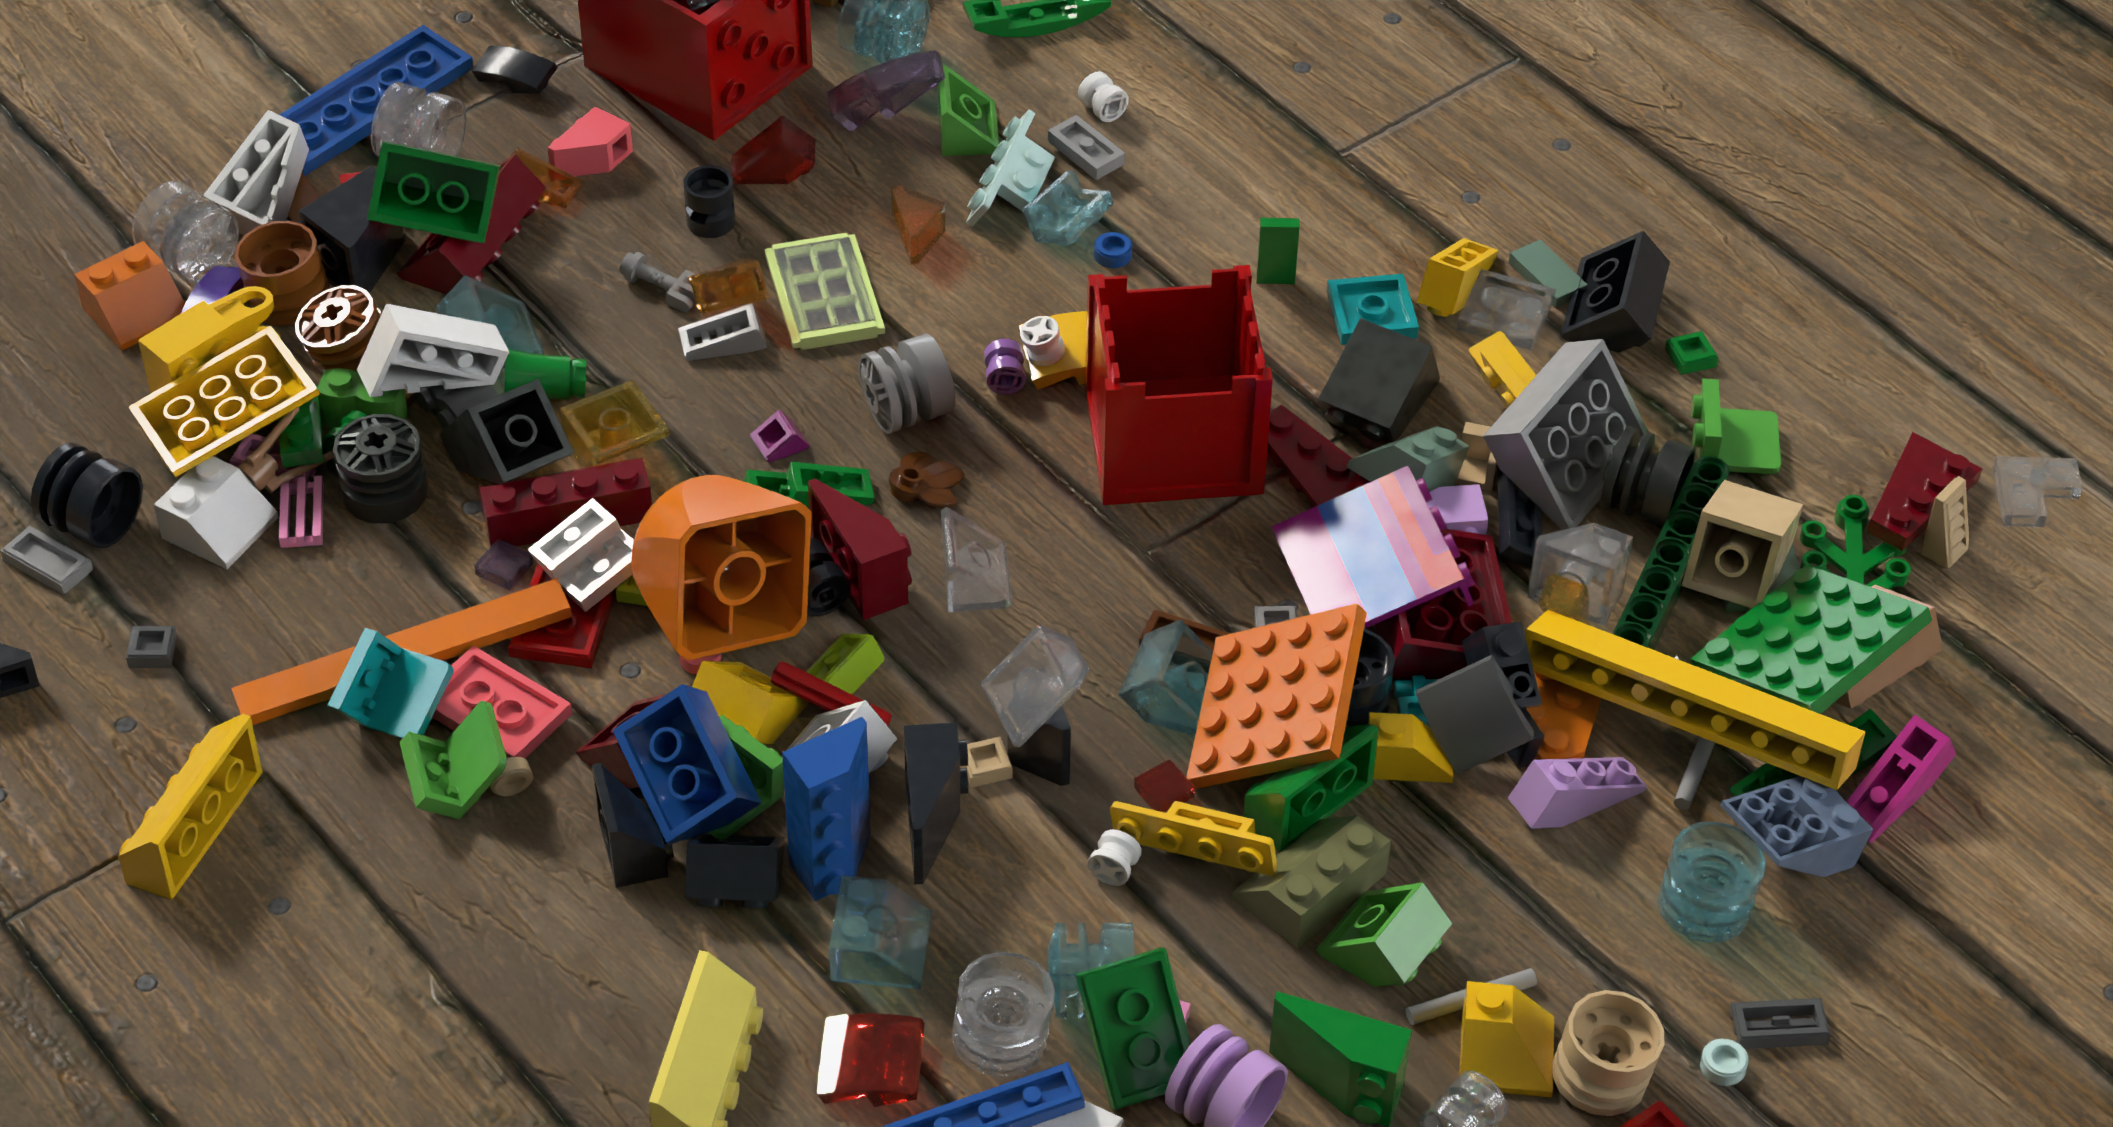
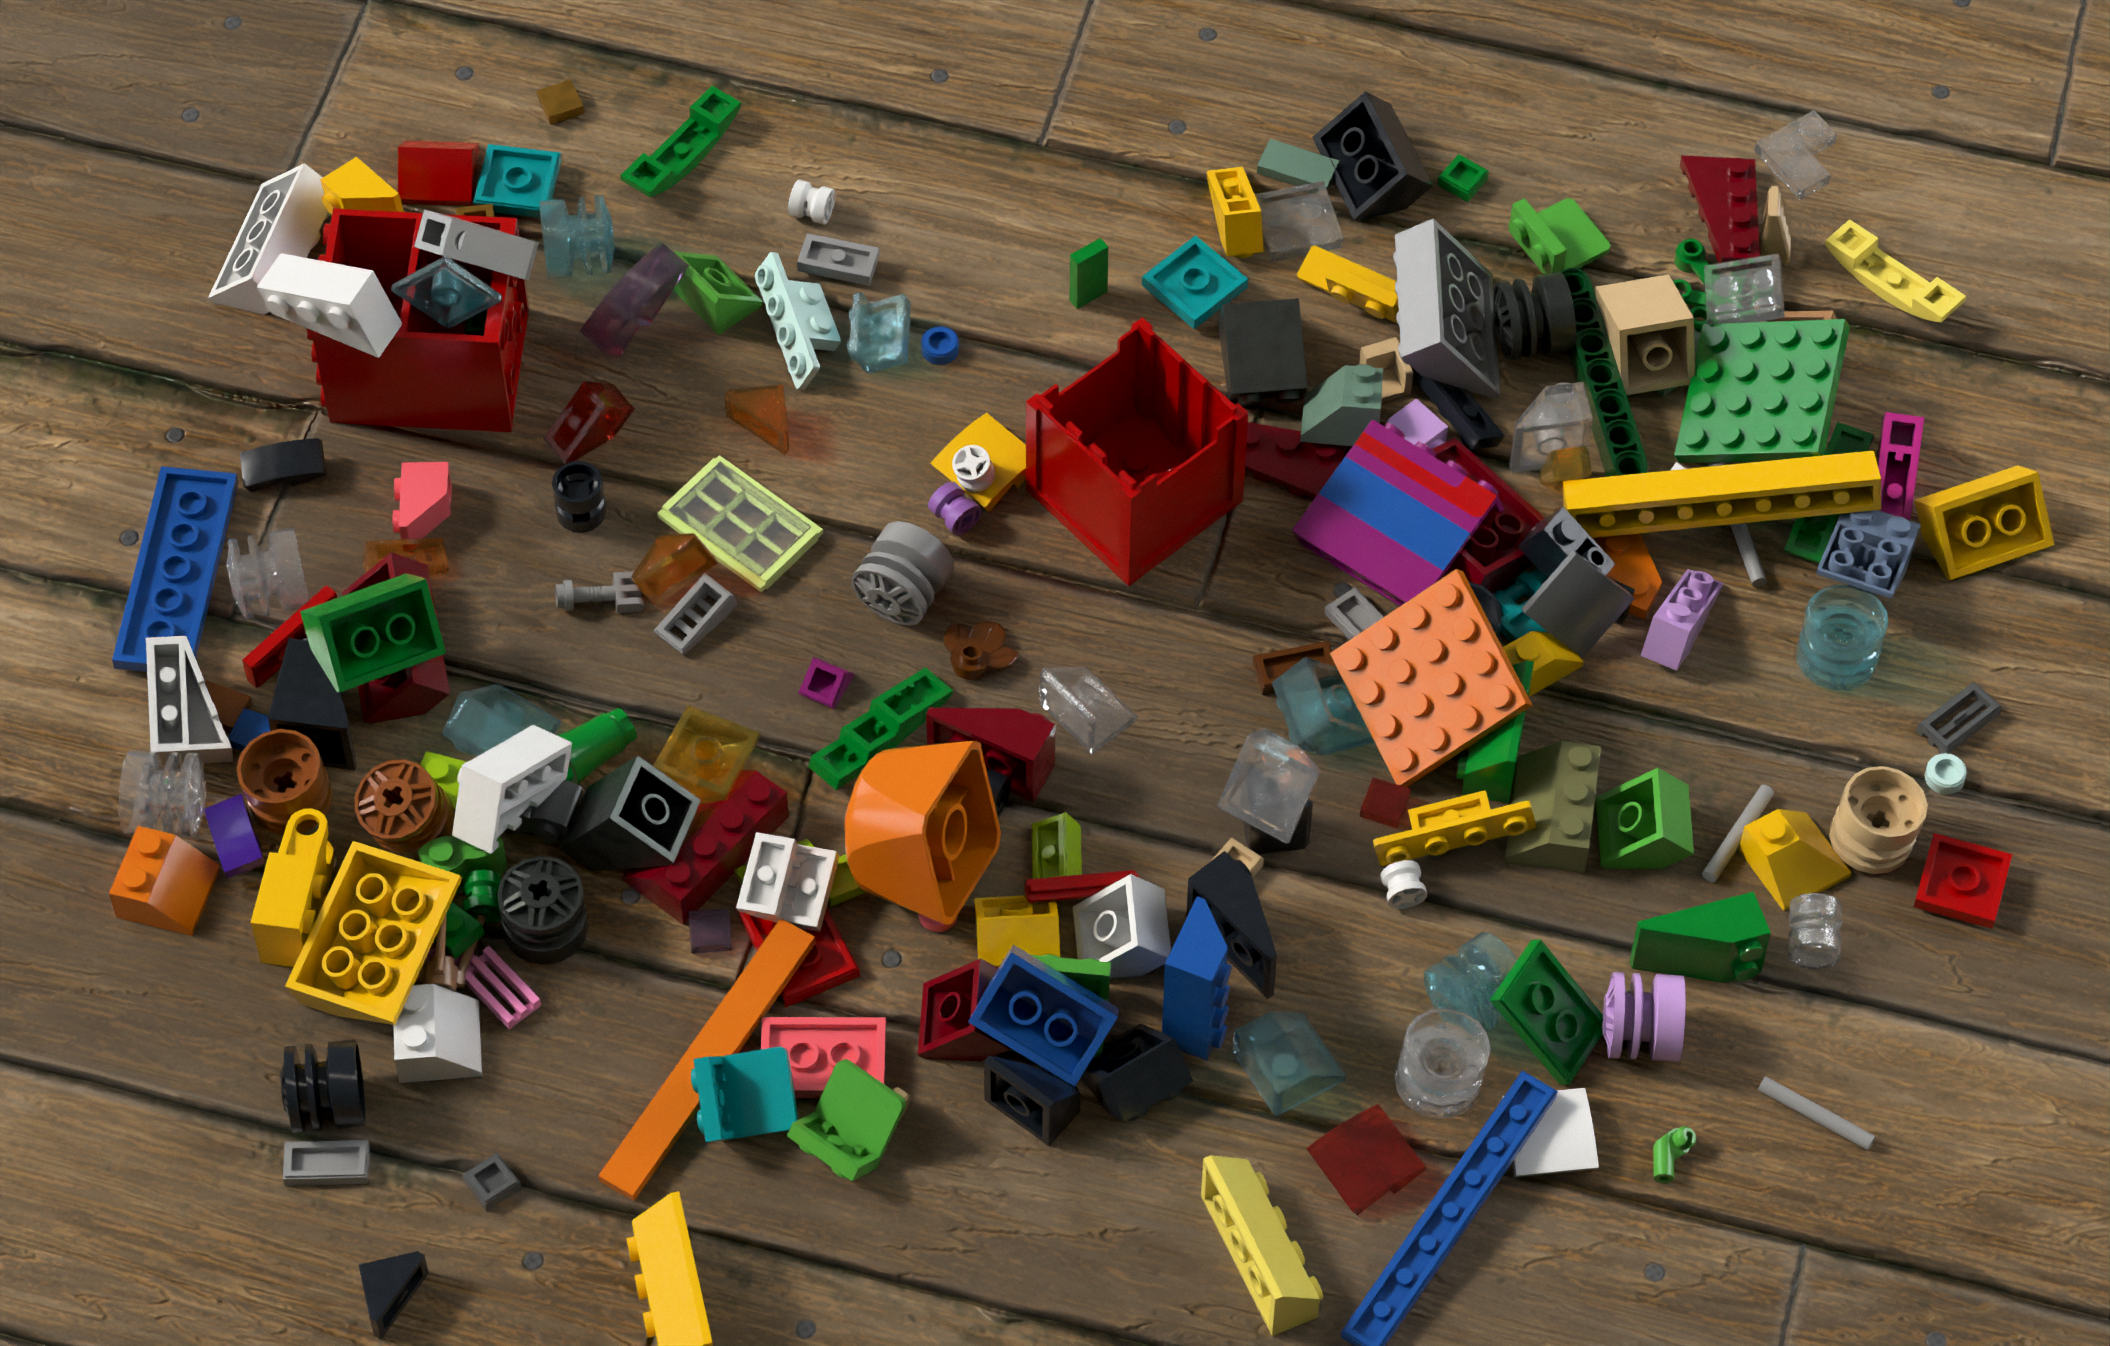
camera: 35 degrees left, 10 degrees up
(1870, 555) = (1744, 290): none -> clear plate
(1951, 871) = (1985, 521): none -> yellow slope
(2032, 622) = (1890, 279): none -> light yellow slope

